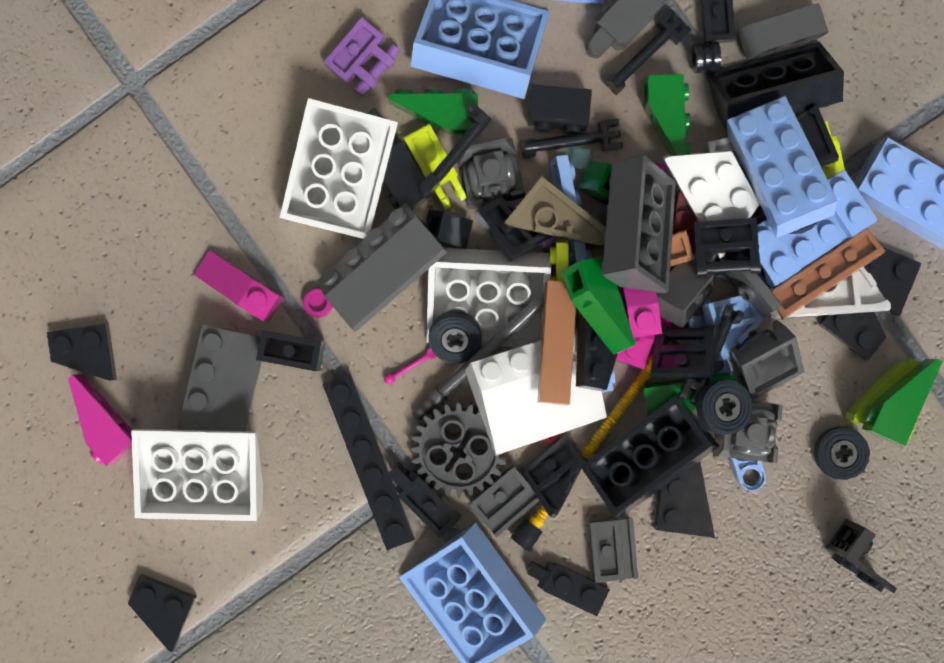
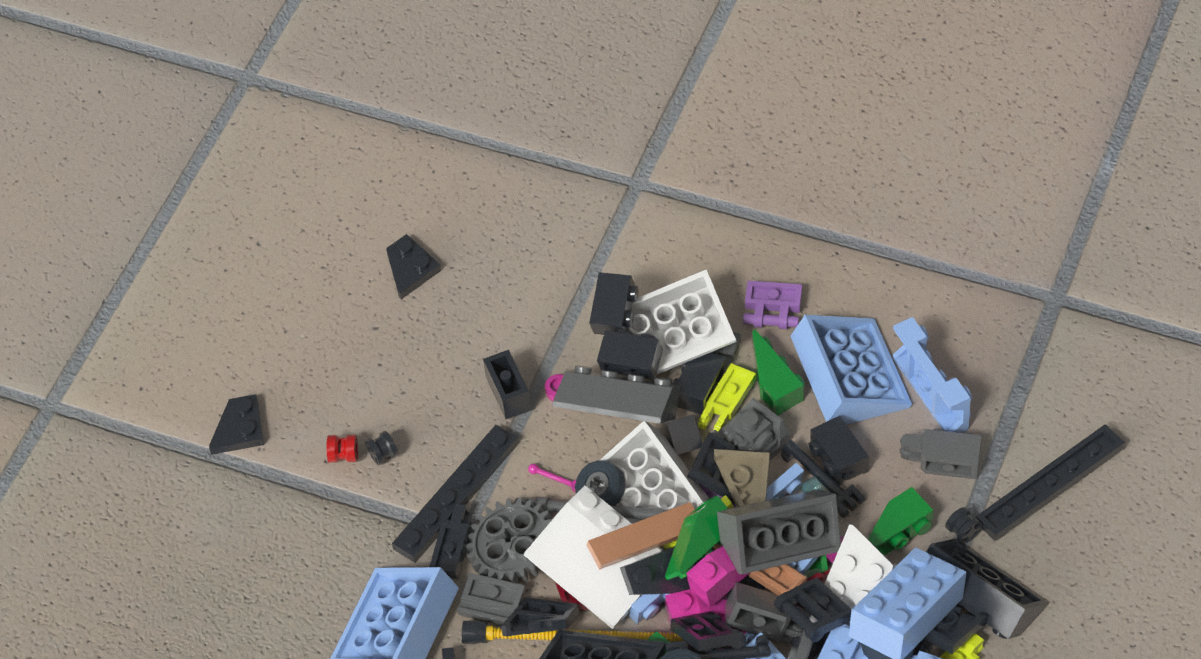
camera: 65 degrees right, 35 degrees down
(101, 425) = (359, 303): dark pink slope -> none
(196, 475) = (367, 374): white slope -> none
(221, 381) = (439, 360): dark grey slope -> none
(239, 286) = (532, 332): dark pink slope -> none
(255, 536) = (342, 448): none -> red wheel
(279, 500) = (381, 448): none -> black wheel
(286, 208) = (613, 303): none -> black brick
(347, 226) = (630, 353): none -> black brick
(432, 181) = (704, 389): black hinge -> none
(668, 31) = (969, 491): black hinge -> none
(782, 31) = (1031, 566): dark grey beam -> none

